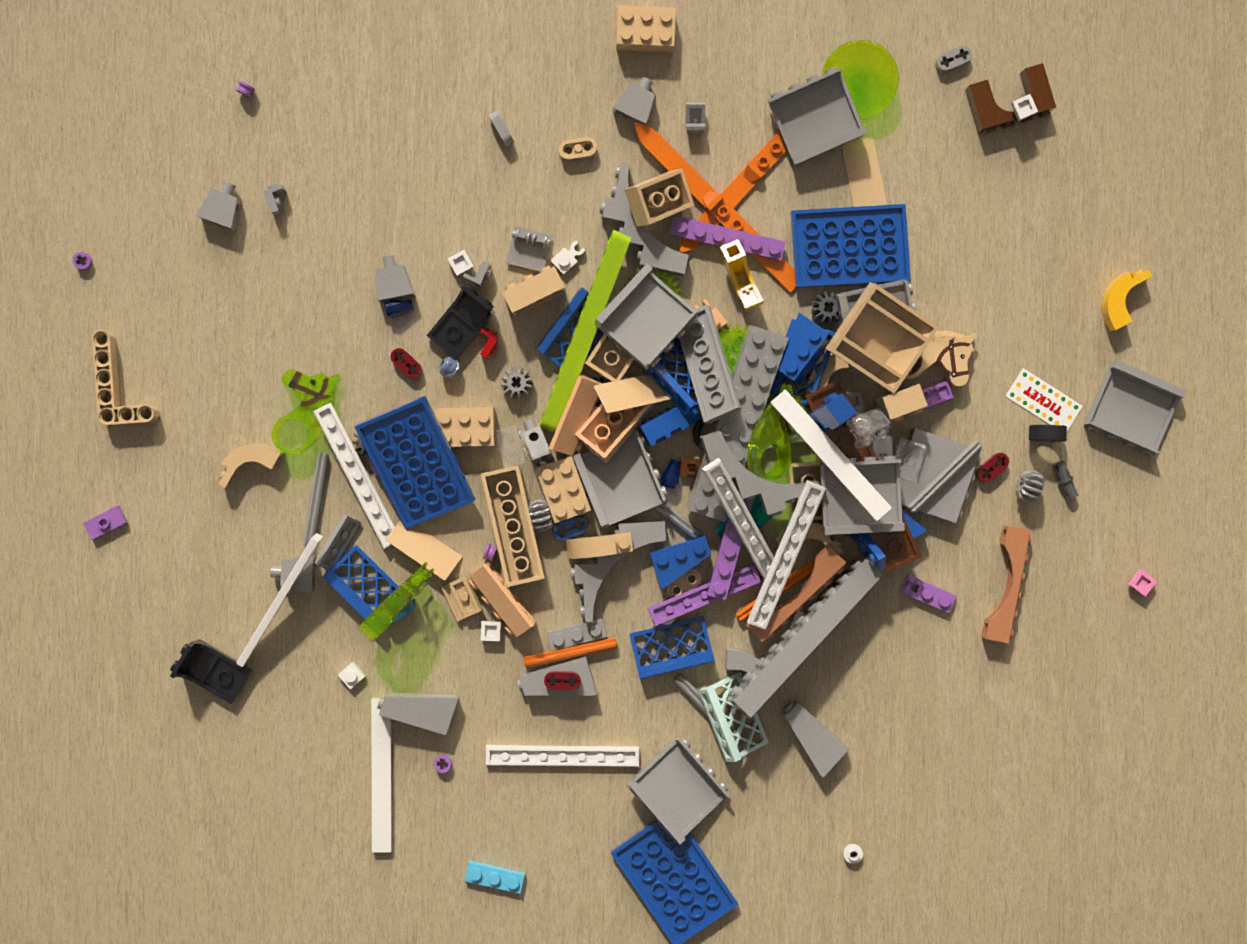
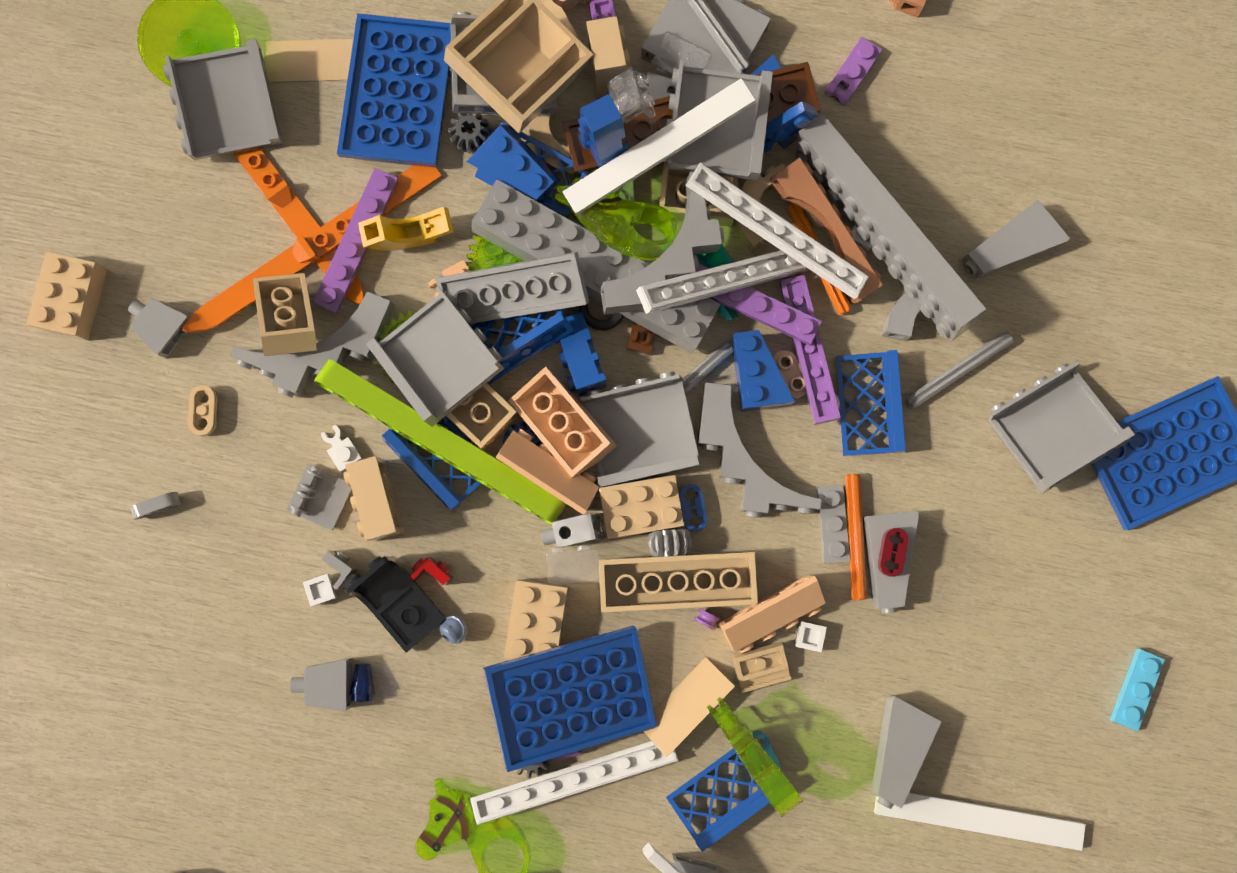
camera: 75 degrees left, 5 degrees down
(245, 89) = (31, 838): medium lavender bush -> none
(274, 203) = (183, 827): light grey bracket -> none
(316, 497) = (592, 840): light grey axle -> none
(337, 542) = (658, 822): light grey plate -> none
(351, 675) = (839, 835): white plate -> none
(403, 366) = (434, 681): dark red beam -> none
(438, 767) = (981, 739): medium lavender bush -> none
(523, 382) = (480, 544): light grey gear -> none
(562, 756) = (989, 572): white tile -> none
(599, 545) = (723, 474): tan arch -> none
(629, 393) = (531, 396): tan sticker -> none
(671, 474) = (646, 364): clear blue cone -> none
(695, 117) = (193, 254): light grey bracket -> none
(722, 726) = (979, 355): light aqua fence -> none
(850, 848) = (1164, 223): white plate -> none

